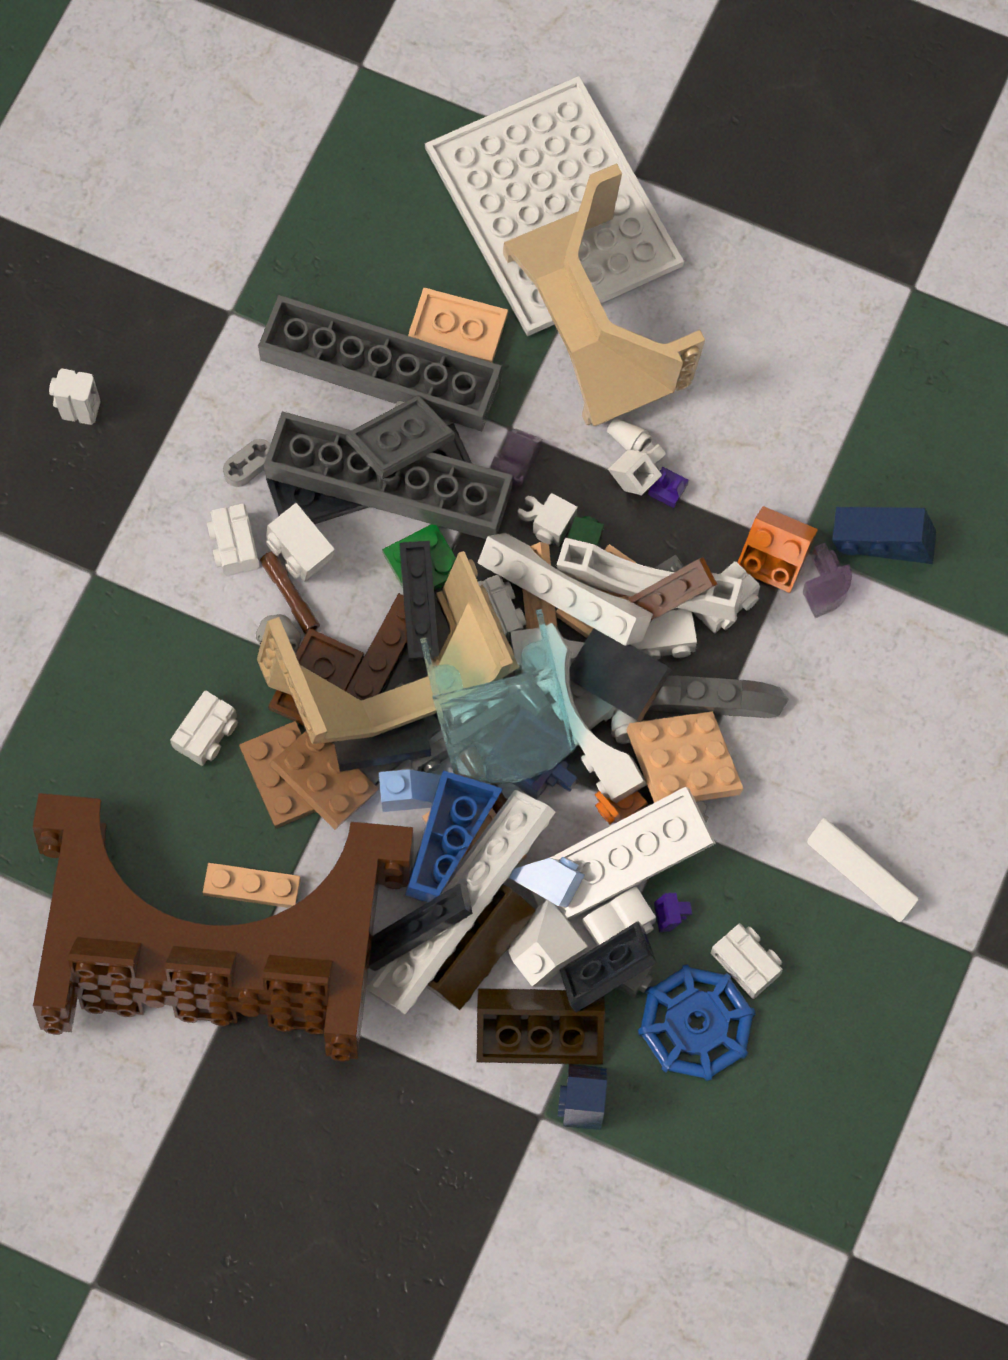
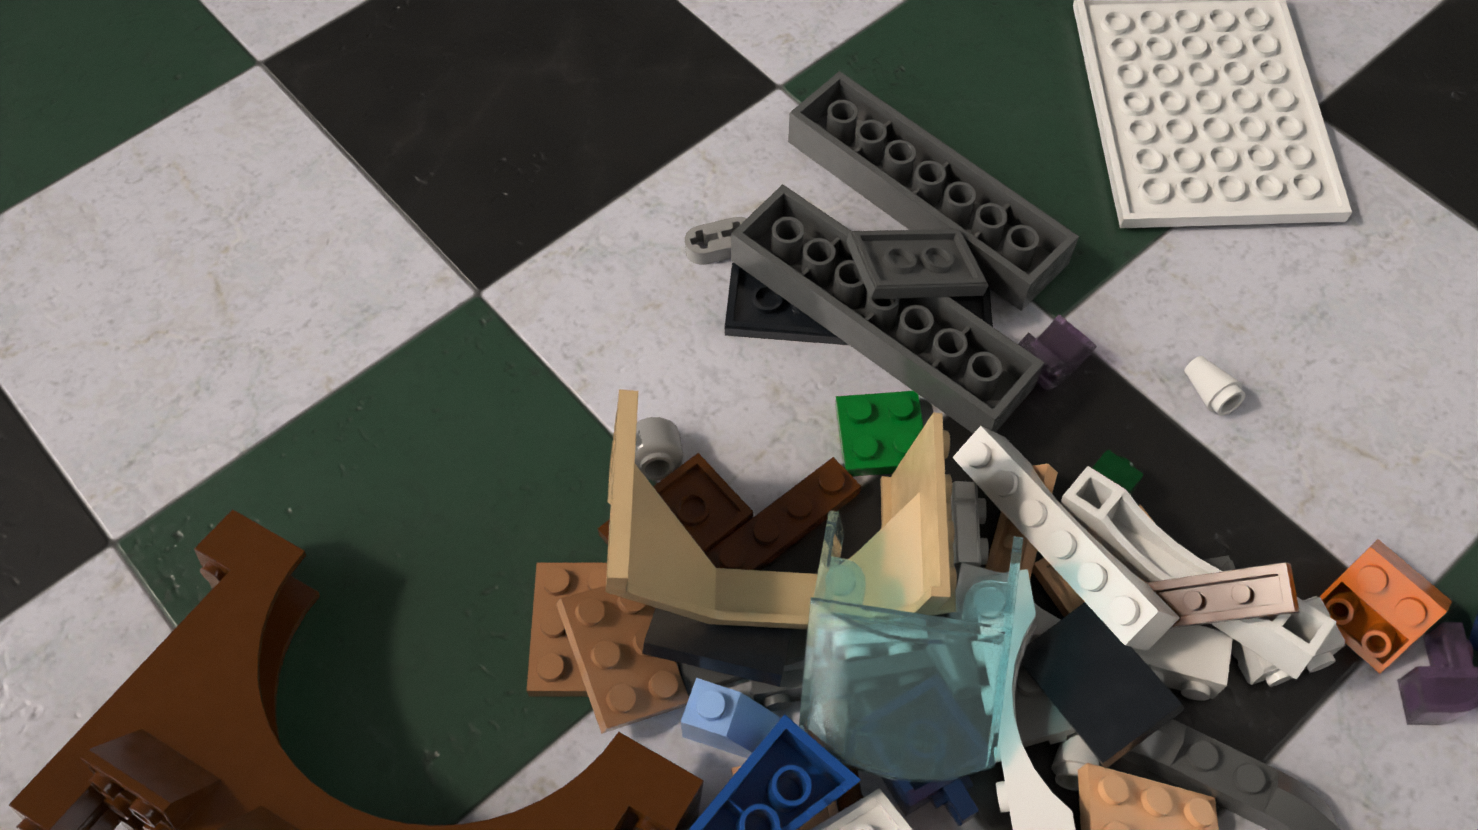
camera: 25 degrees right, 10 degrees down
(75, 396) = (558, 94): white brick -> none
(204, 728) = (503, 523): white brick -> none
(234, 539) = (658, 314): white brick -> none
(251, 885) = (455, 762): light nougat plate -> none
(280, 577) = (693, 378): reddish brown piece -> none
(299, 543) = (733, 341): white brick -> none
(418, 598) = (855, 469): black plate -> none
(458, 324) = (1045, 180): light nougat plate -> none
(551, 519) = (1071, 443): white brick -> none
(610, 363) = (1238, 271): tan panel -> none
(636, 469) = (1213, 426): white brick -> none
(668, 487) = (1245, 466): dark purple tile -> none

